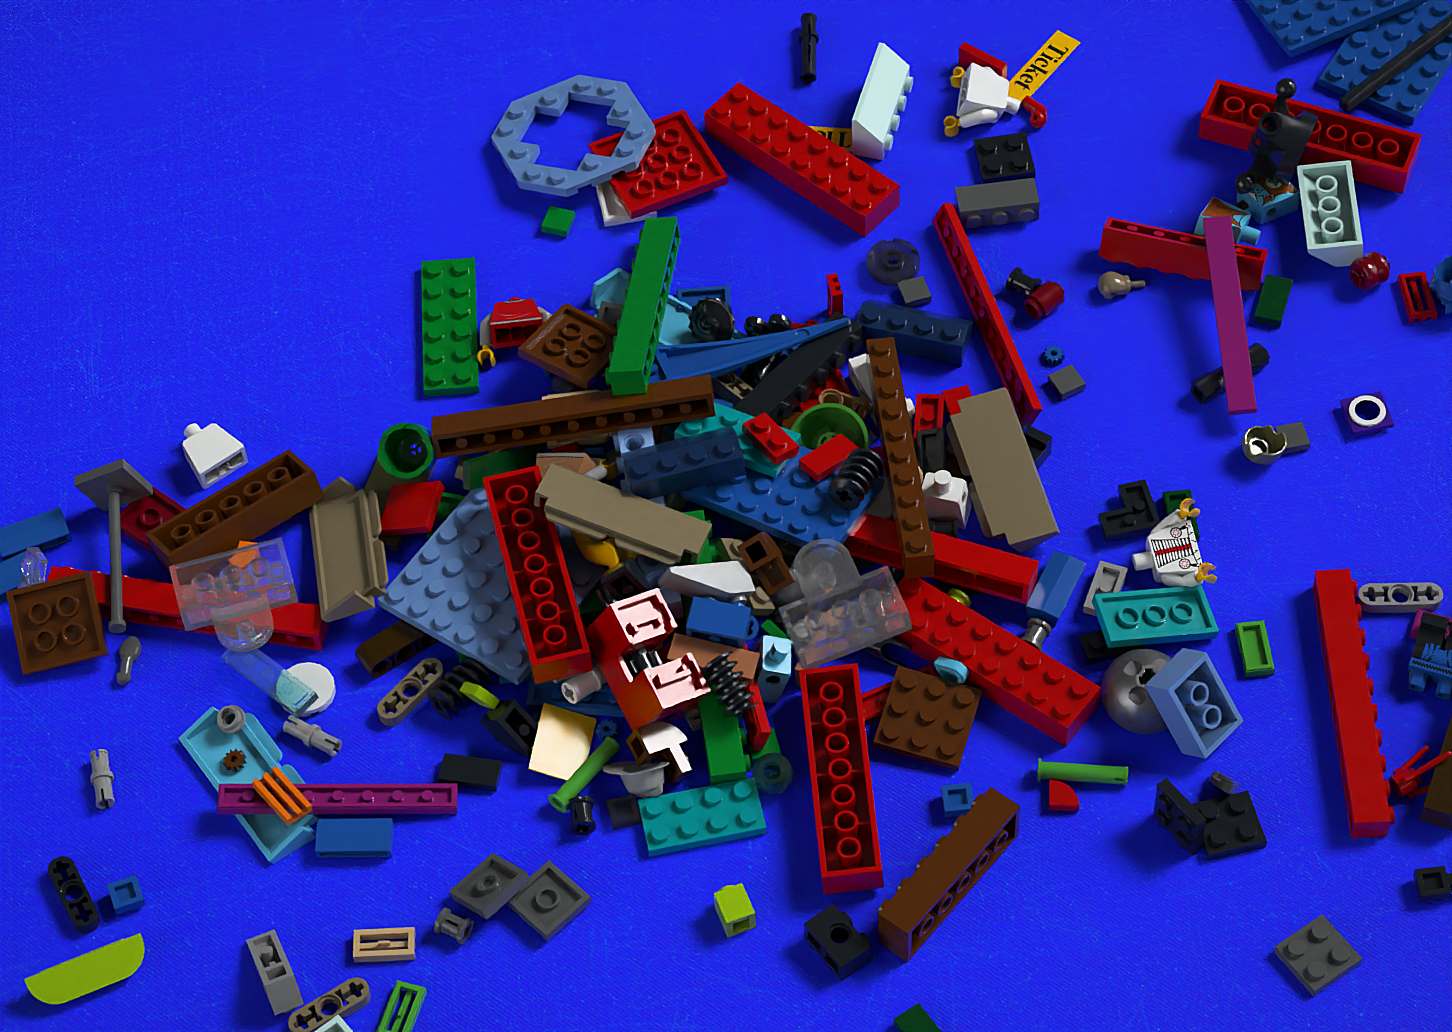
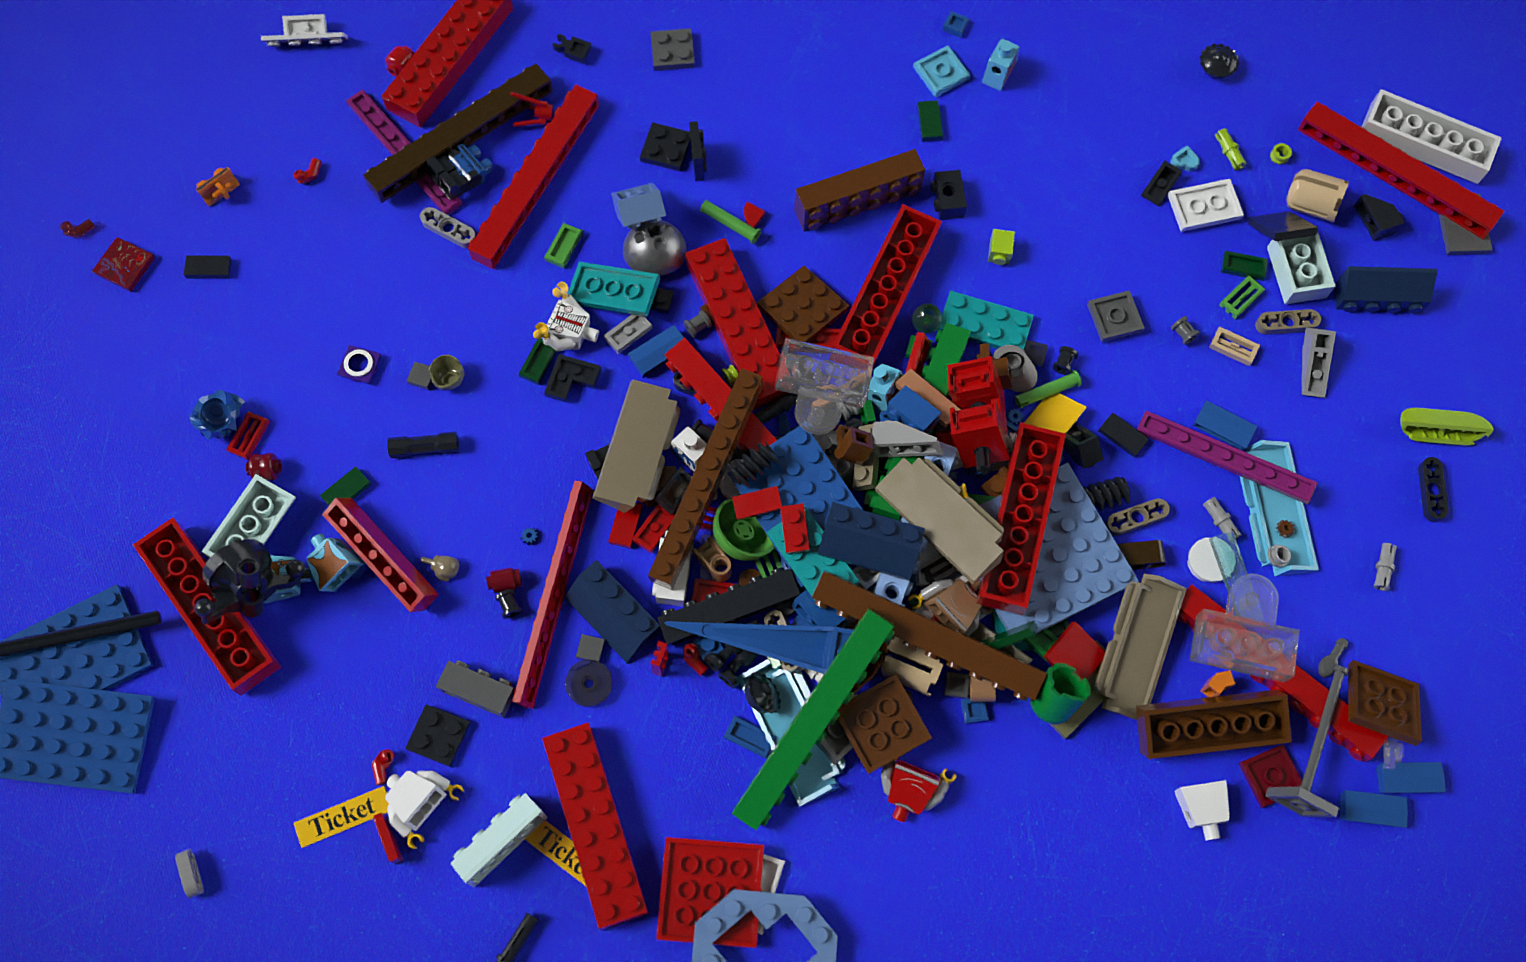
camera: 155 degrees left, 15 degrees up
(126, 894) = (1397, 467): blue plate -> none
(268, 779) = (1277, 463): orange tile -> none
(449, 327) = (959, 829): green plate -> none
(479, 695) = (1098, 469): lime tile -> none
(489, 886) = (1151, 339): dark grey plate -> none
(558, 221) = (820, 886): green tile -> none
(625, 580) = (967, 463): black slope -> none
(728, 686) = (932, 363): black piece -> none
(951, 669) = (768, 318): medium azure tile -> none
(956, 799) = (819, 244): blue plate -> none
(1066, 382) = (537, 506): dark grey tile -> none
(1223, 782) = (651, 167): dark grey tile -> none
(1229, 315) = (391, 473): magenta tile -> none

